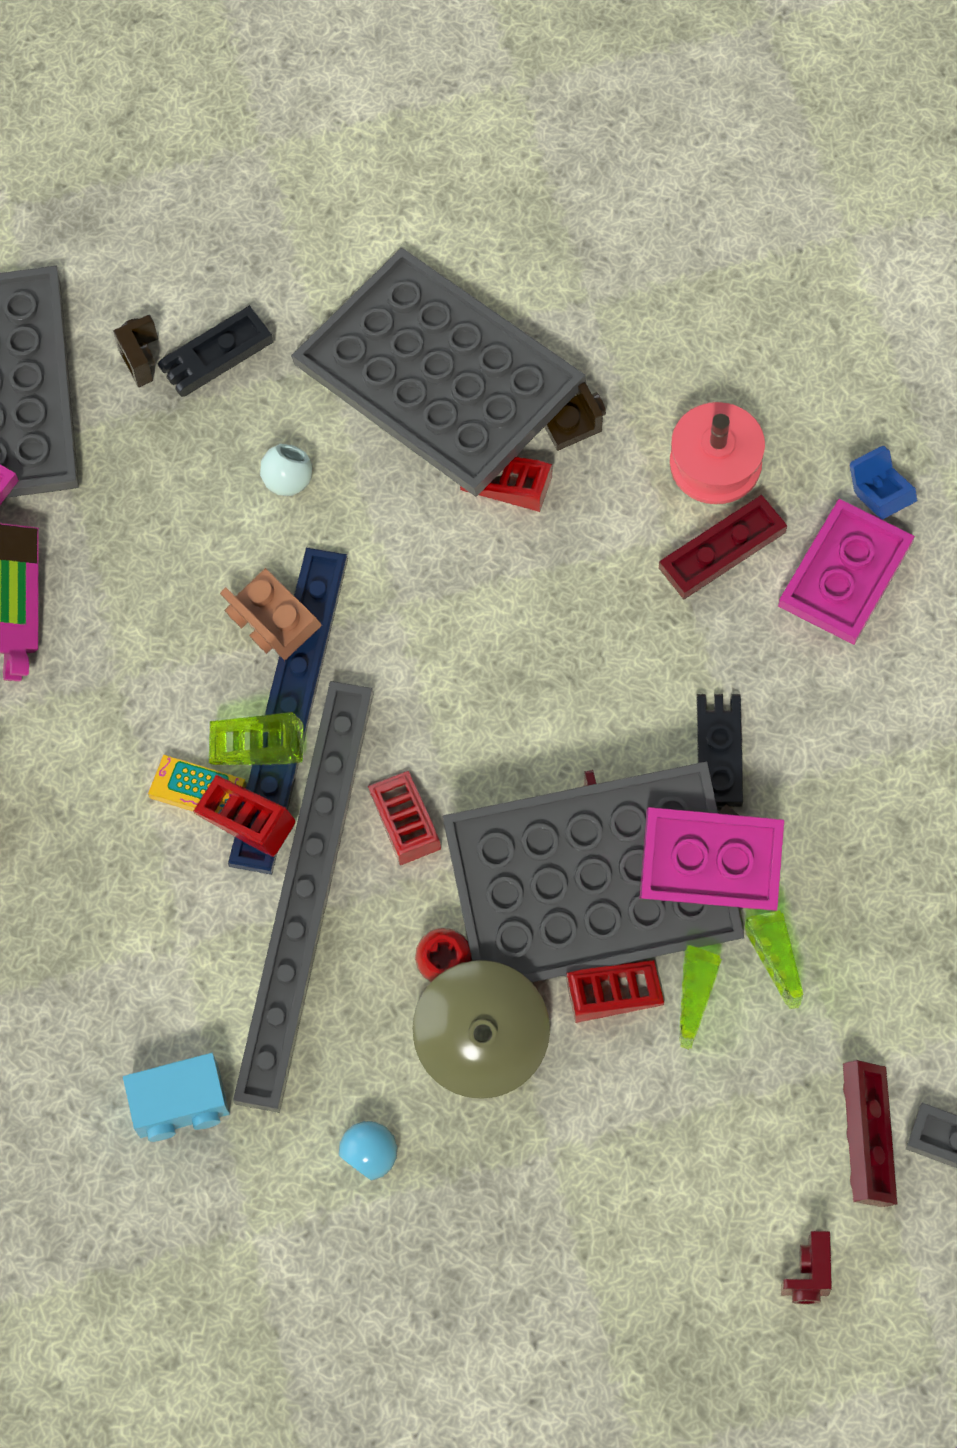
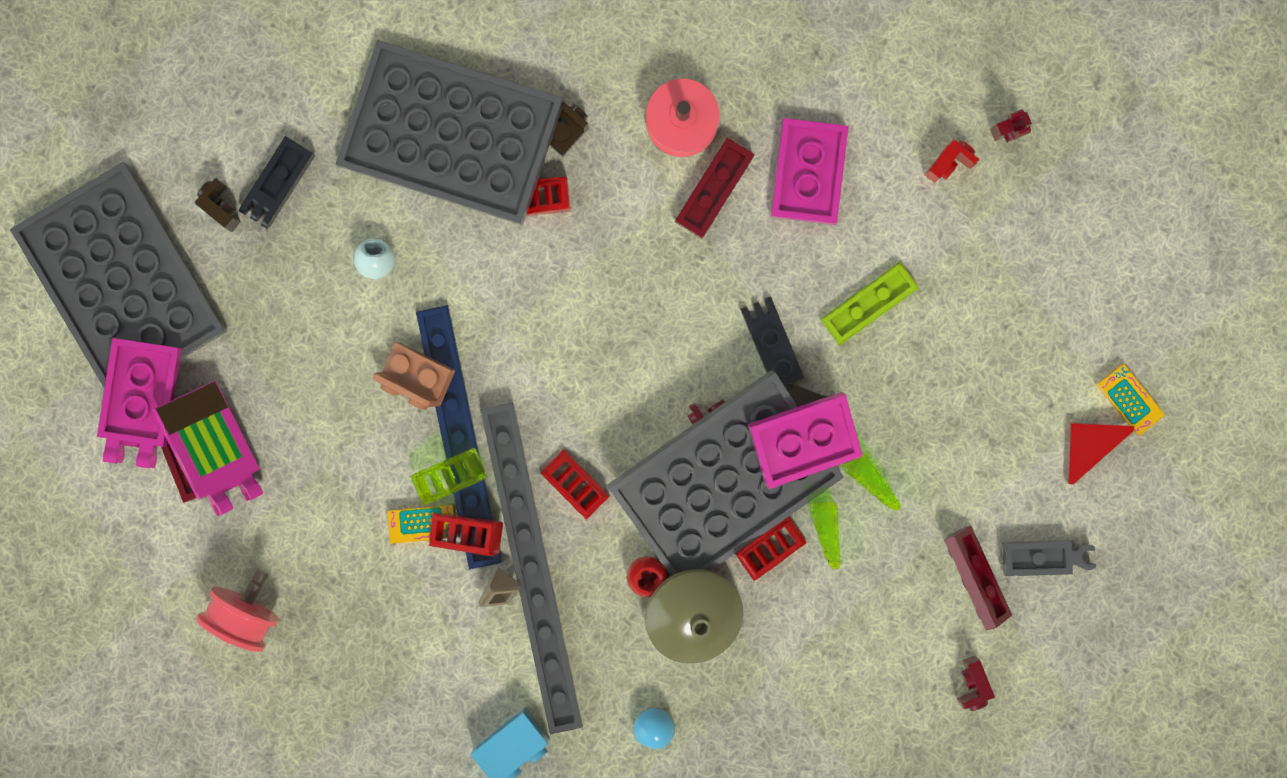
camera: 30 degrees left, 20 degrees up
(253, 898) = (499, 589): none -> dark tan slope
(860, 750) = (869, 303): none -> lime tile
(880, 484) = (809, 93): blue bracket -> none

